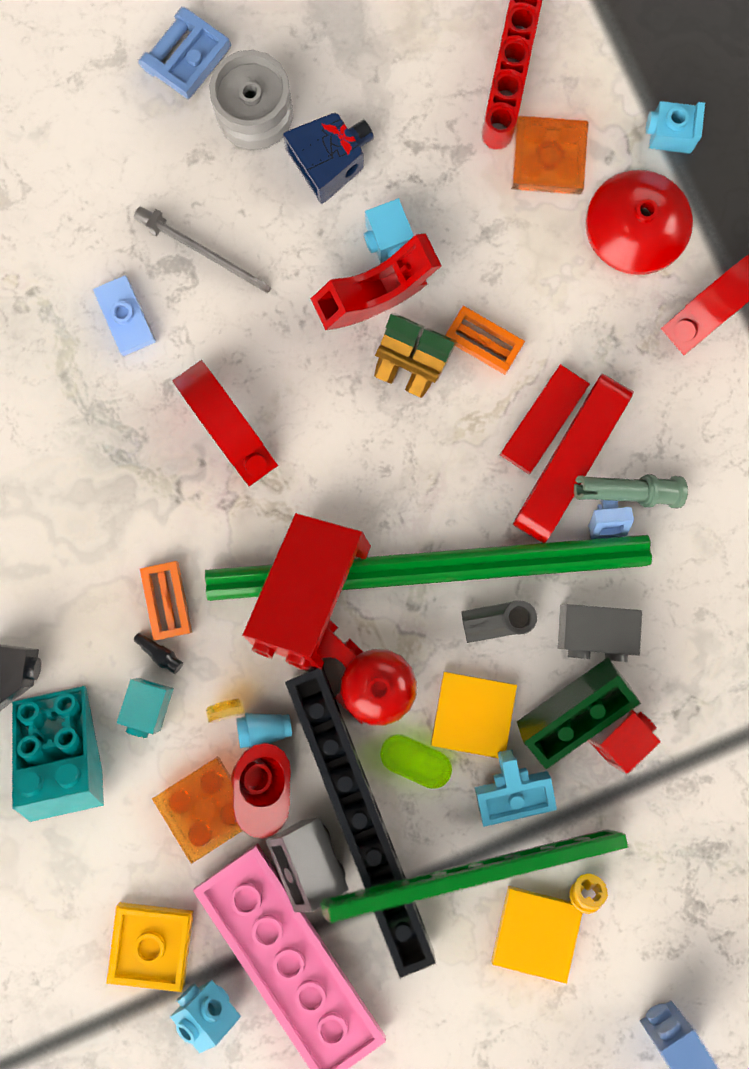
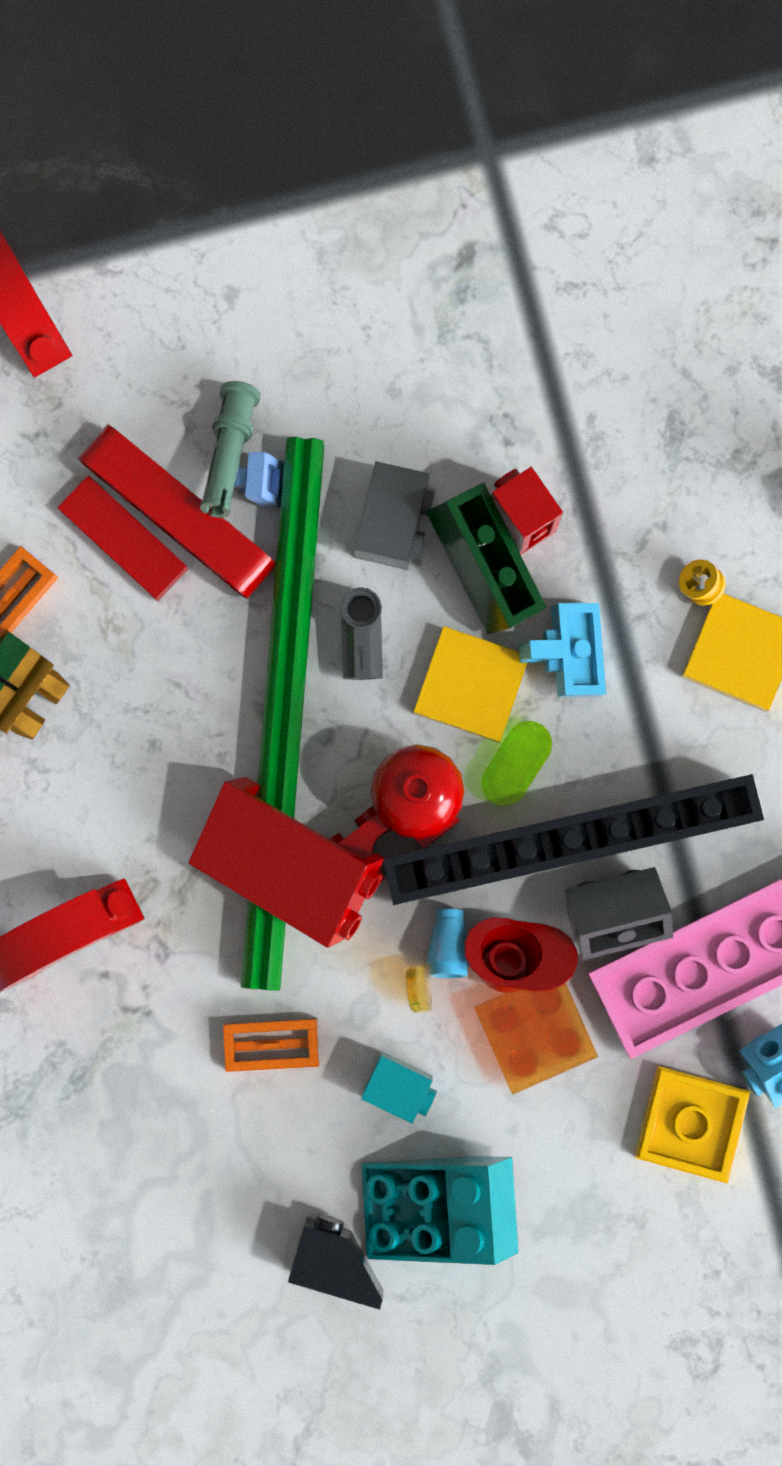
camera: 75 degrees left, 0 degrees up
(160, 654) = (336, 1062): black piece -> none
(471, 874) = (655, 715): green tile -> none

